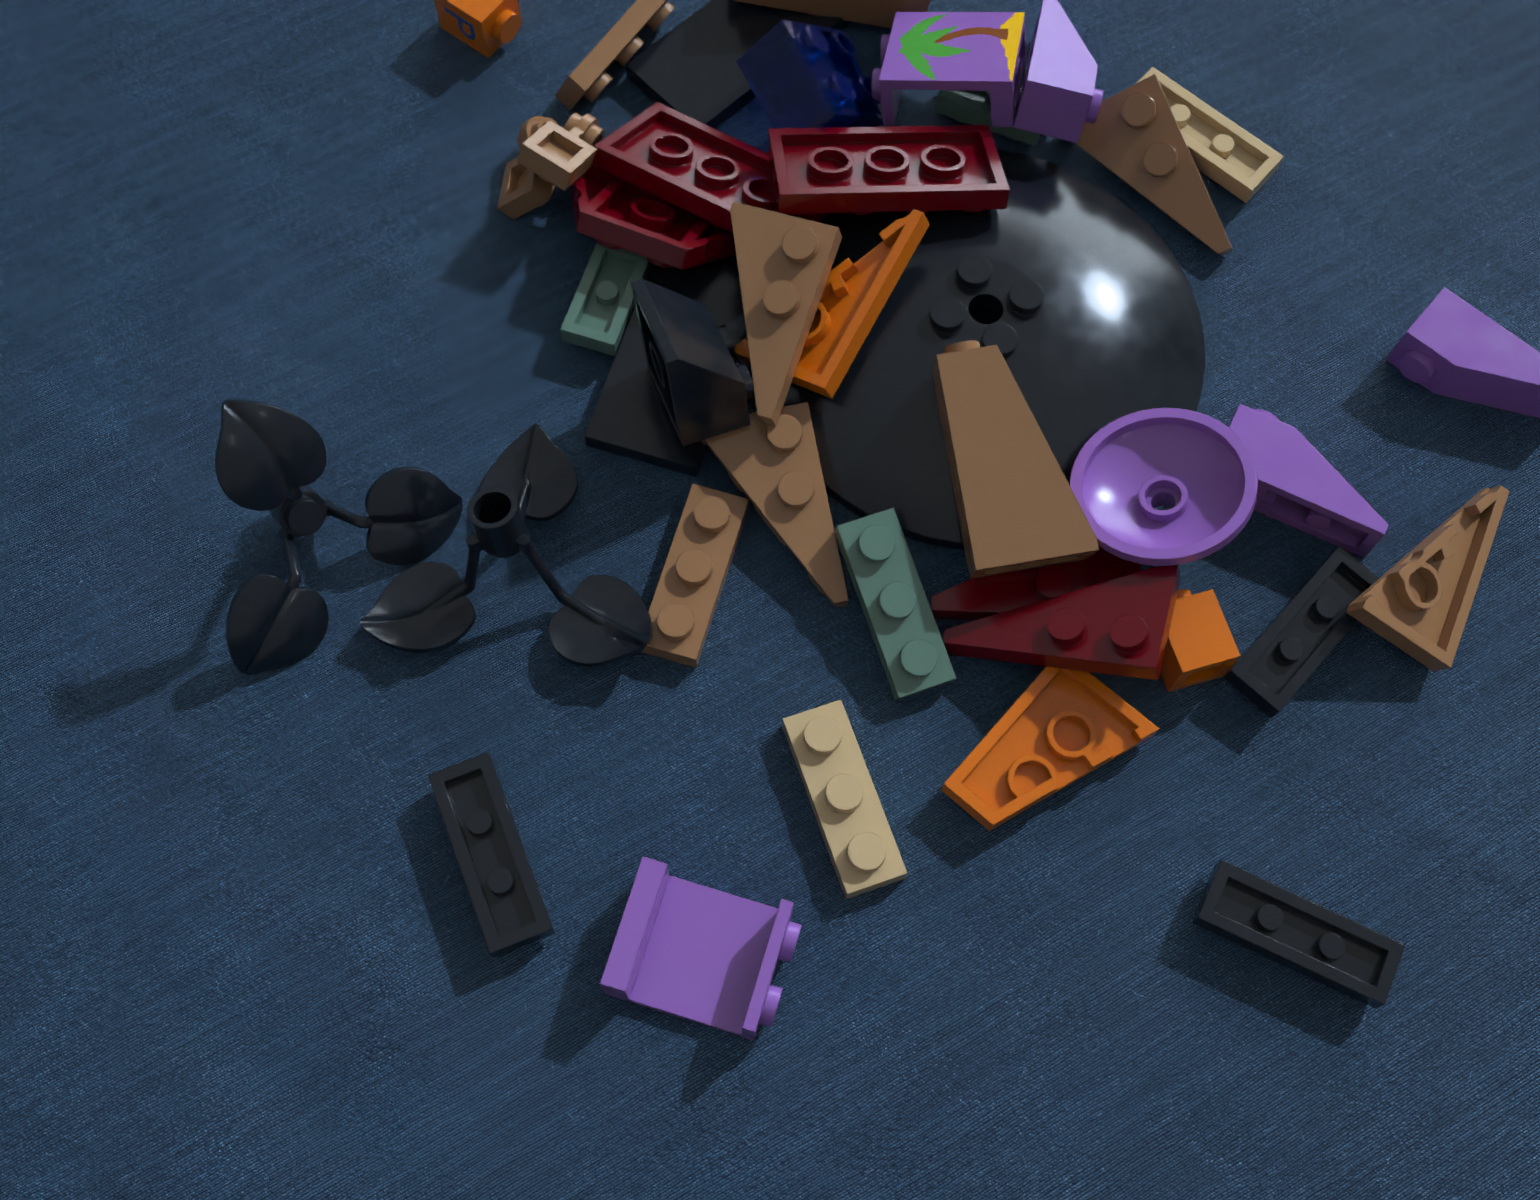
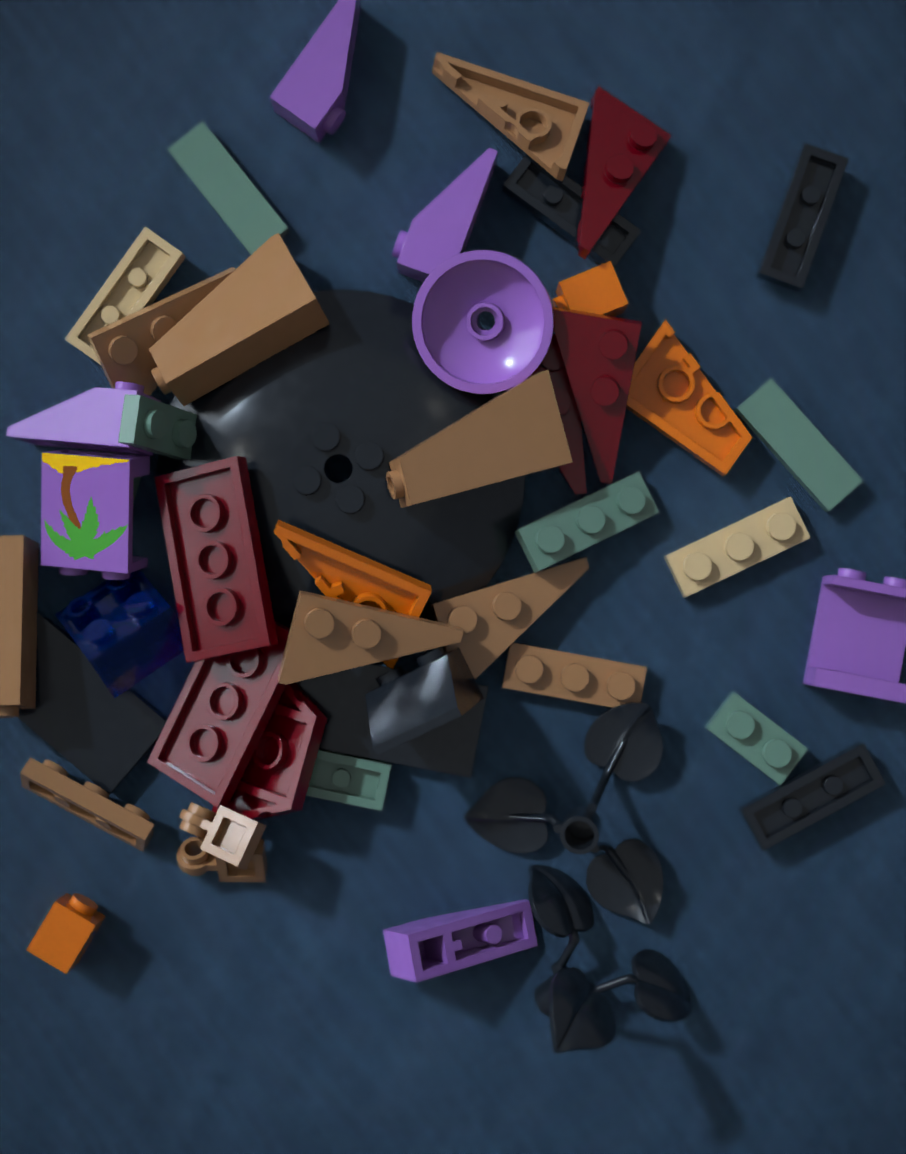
camera: 95 degrees left, 20 degrees up
(385, 393) = (458, 940): none -> medium lavender slope
(580, 794) = (756, 738): none -> sand green plate
(976, 897) = (798, 445): none -> sand green tile
(1047, 122) = (157, 427): none -> sand green plate
(1167, 232) = (238, 324): none -> medium nougat slope
(1326, 253) = (227, 188): none -> sand green tile
(1377, 694) = (619, 155): none -> dark red wing

